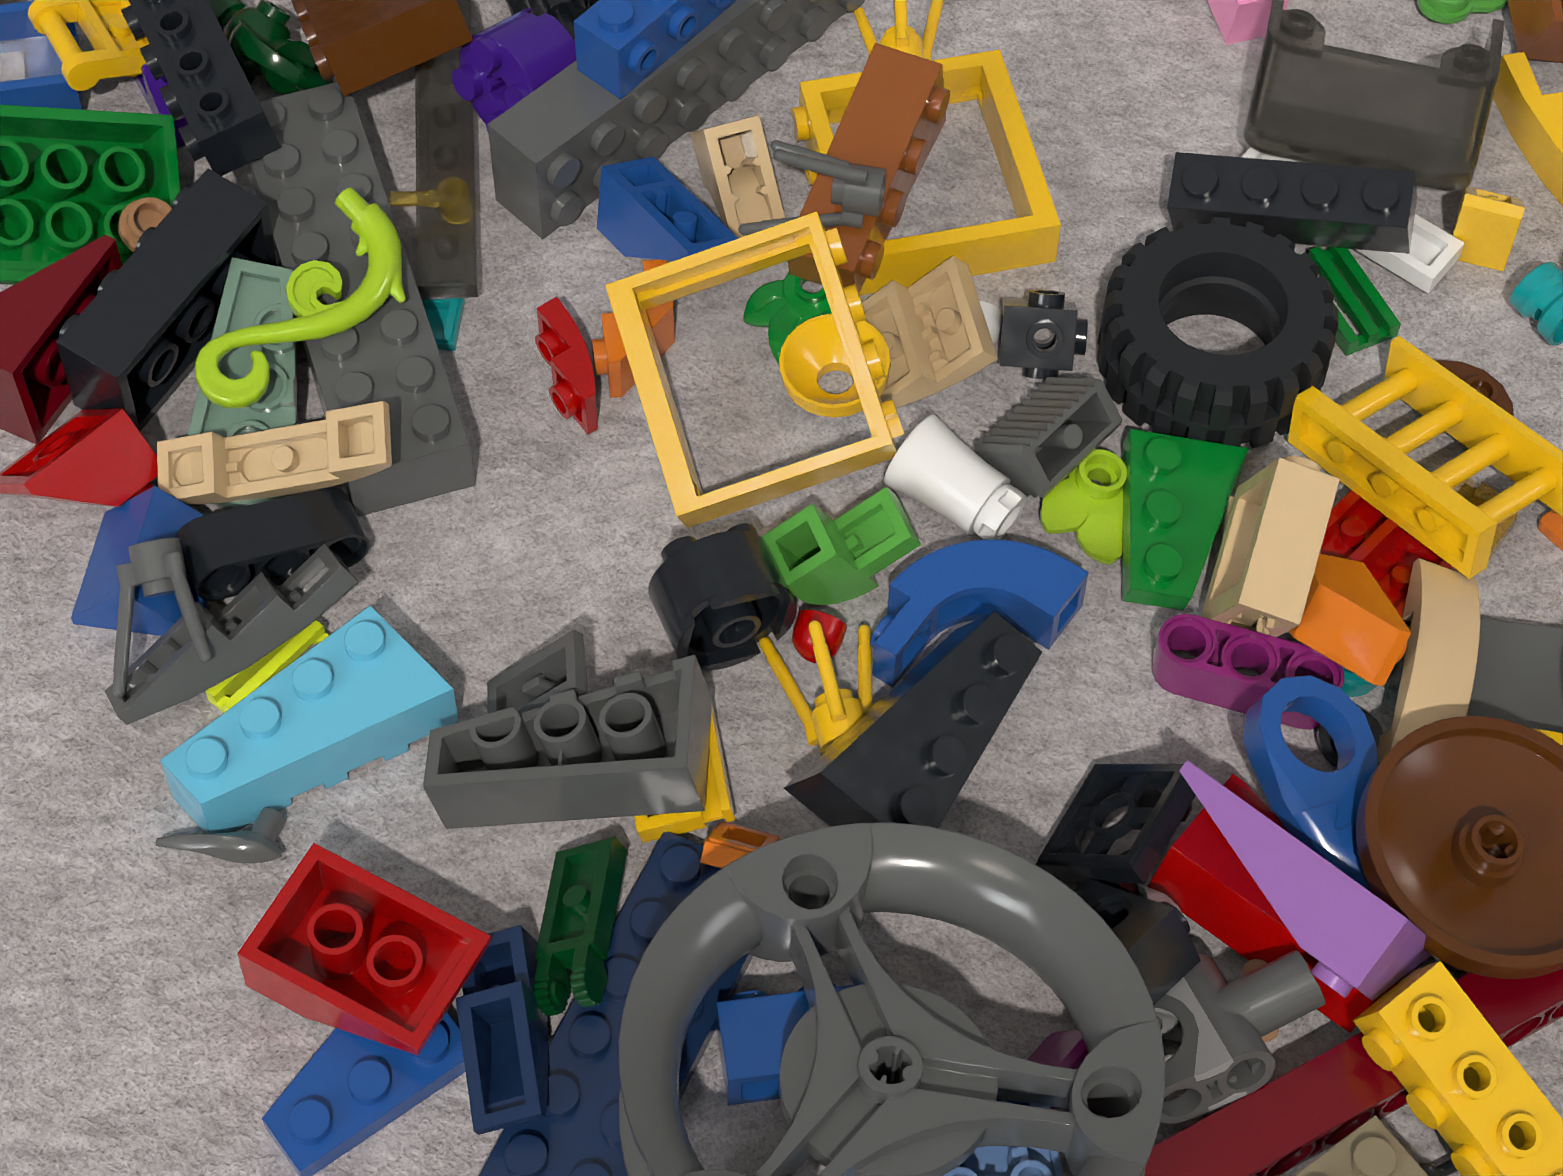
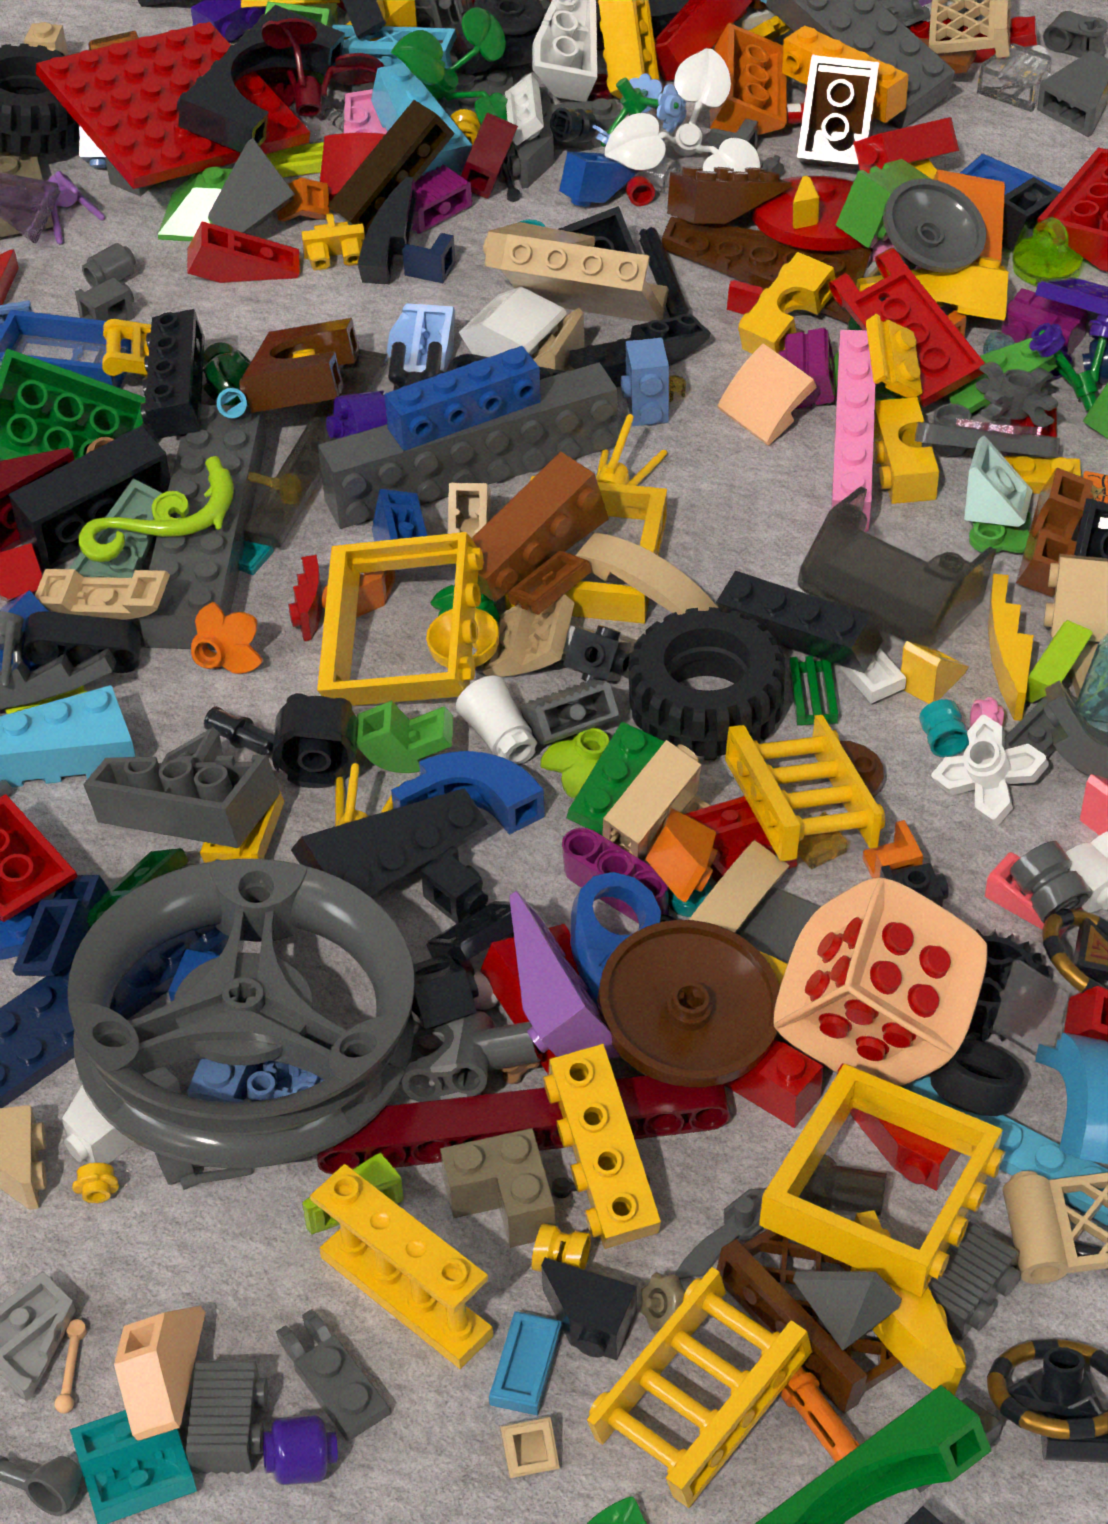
camera: 25 degrees right, 10 degrees down
(324, 99) = (228, 395): none -> medium azure hinge
(495, 468) = (229, 637): none -> orange plate
(587, 613) = (240, 731): none -> black axle
(833, 631) = (370, 782): red hinge -> none
(854, 186) = (503, 528): dark grey plant -> none
(948, 244) = (549, 582): none -> dark orange tile
(1034, 764) = (453, 886): none -> black brick
(1049, 189) = (644, 572): none -> tan slope

